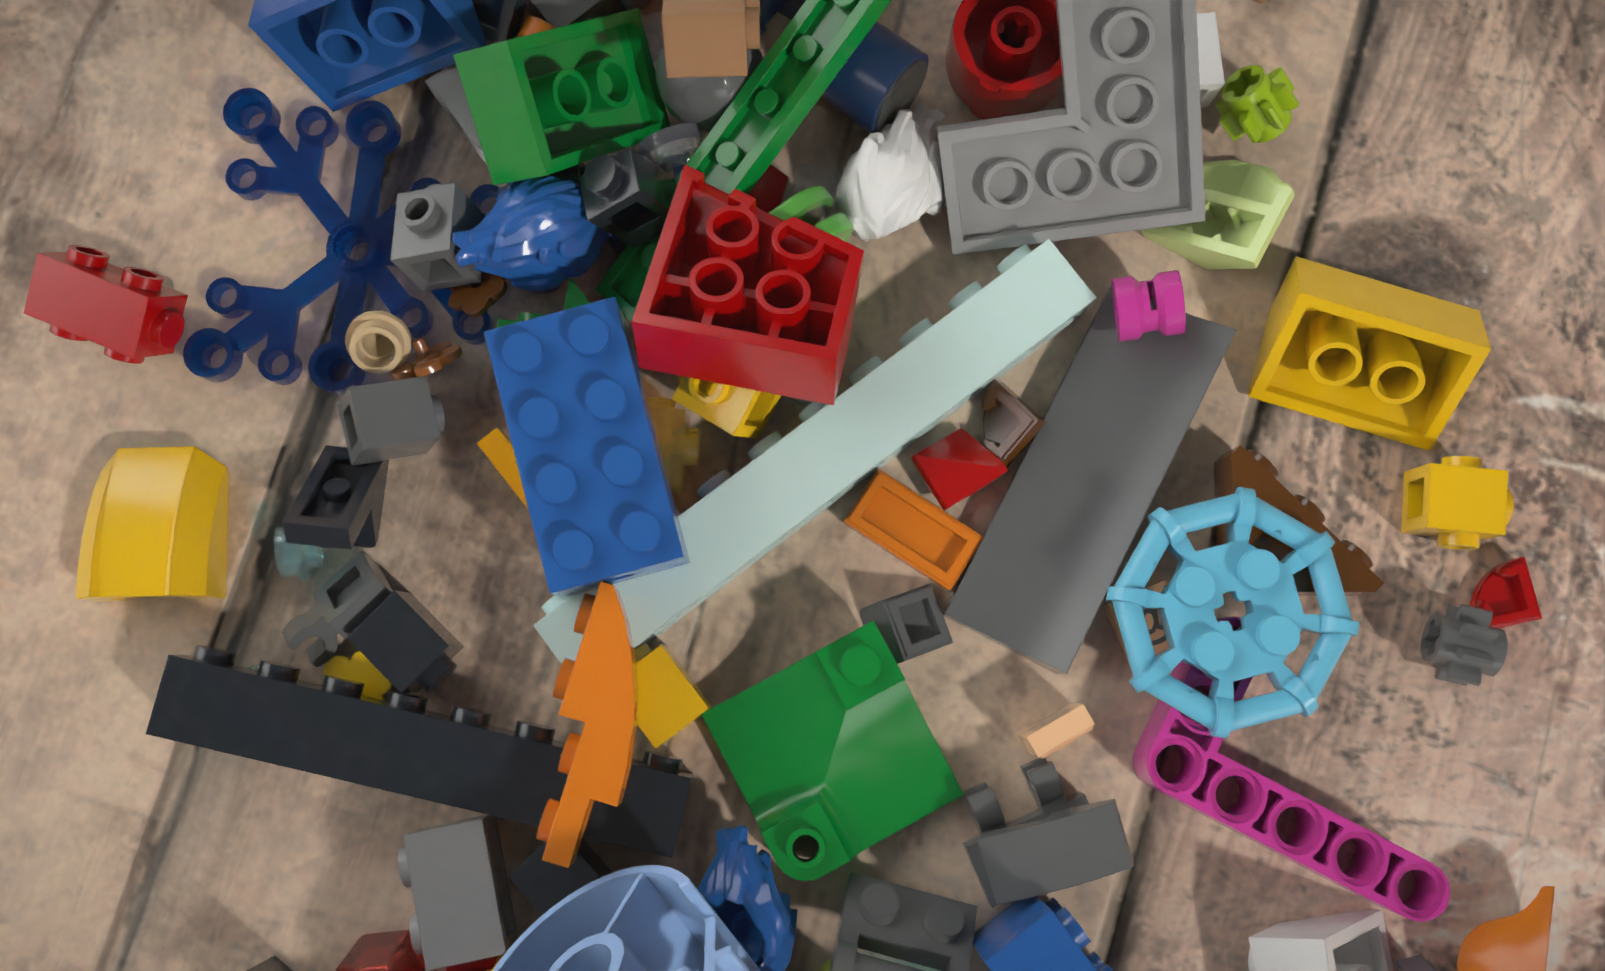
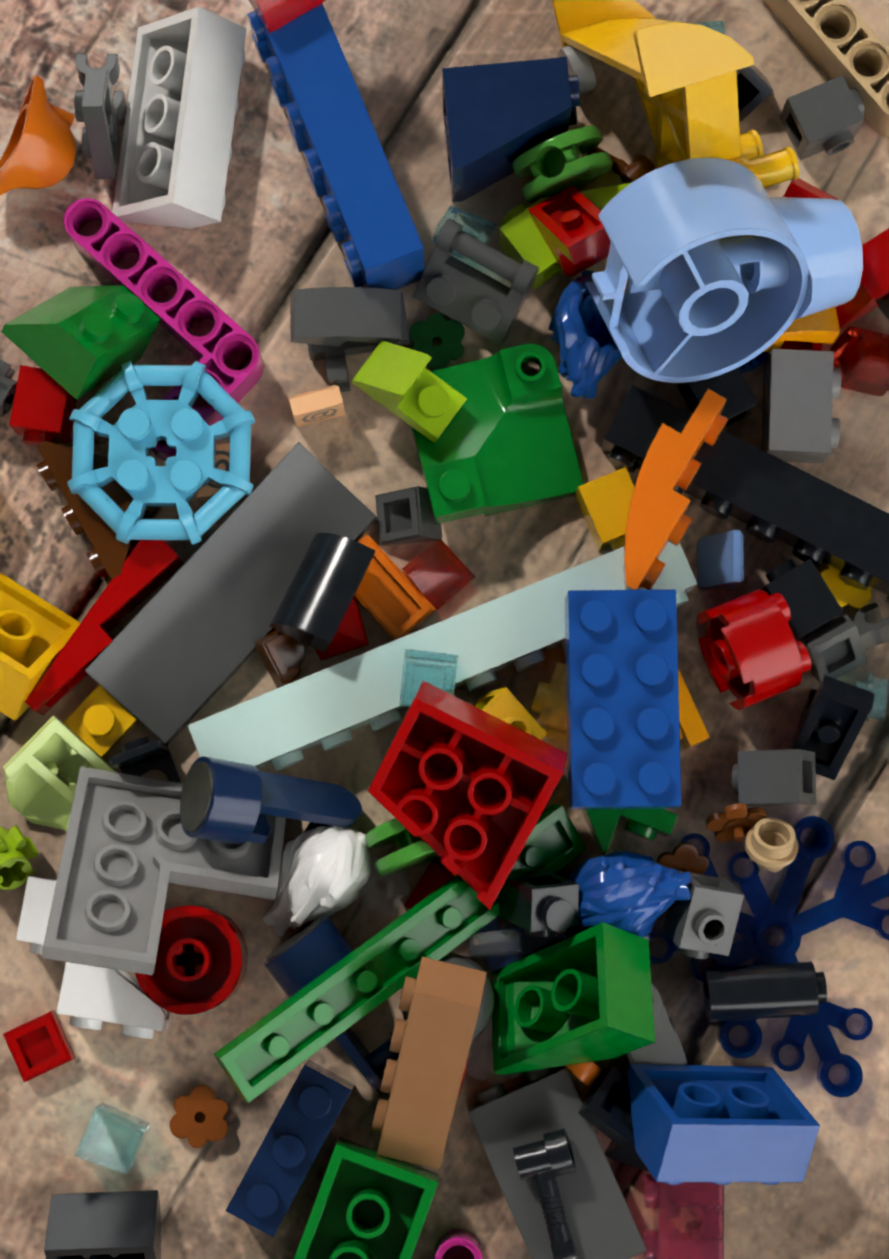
camera: 165 degrees left, 0 degrees up
(352, 174) = (763, 991): none -> black brick
(448, 565) = (752, 648): none -> red brick
(514, 668) = (720, 560): none -> medium blue slope
(829, 427) = (426, 666): none -> clear light blue slope
(851, 564) = (438, 574): none -> clear red slope
(949, 776) = (405, 387): none -> lime slope
(950, 857) = (436, 328): none -> dark green plant
(985, 498) = (322, 589): none -> black brick
(1009, 216) = (232, 799): none -> dark blue piece
(1133, 308) = (160, 712): dark pink wheel -> none
(1137, 259) = (142, 756): none -> black bracket
(1203, 284) = (101, 721): none -> yellow plate
(1208, 460) = (141, 574): none -> red slope
(1373, 739) = (84, 334): none -> green slope
(1391, 642) = (41, 408): none -> red brick

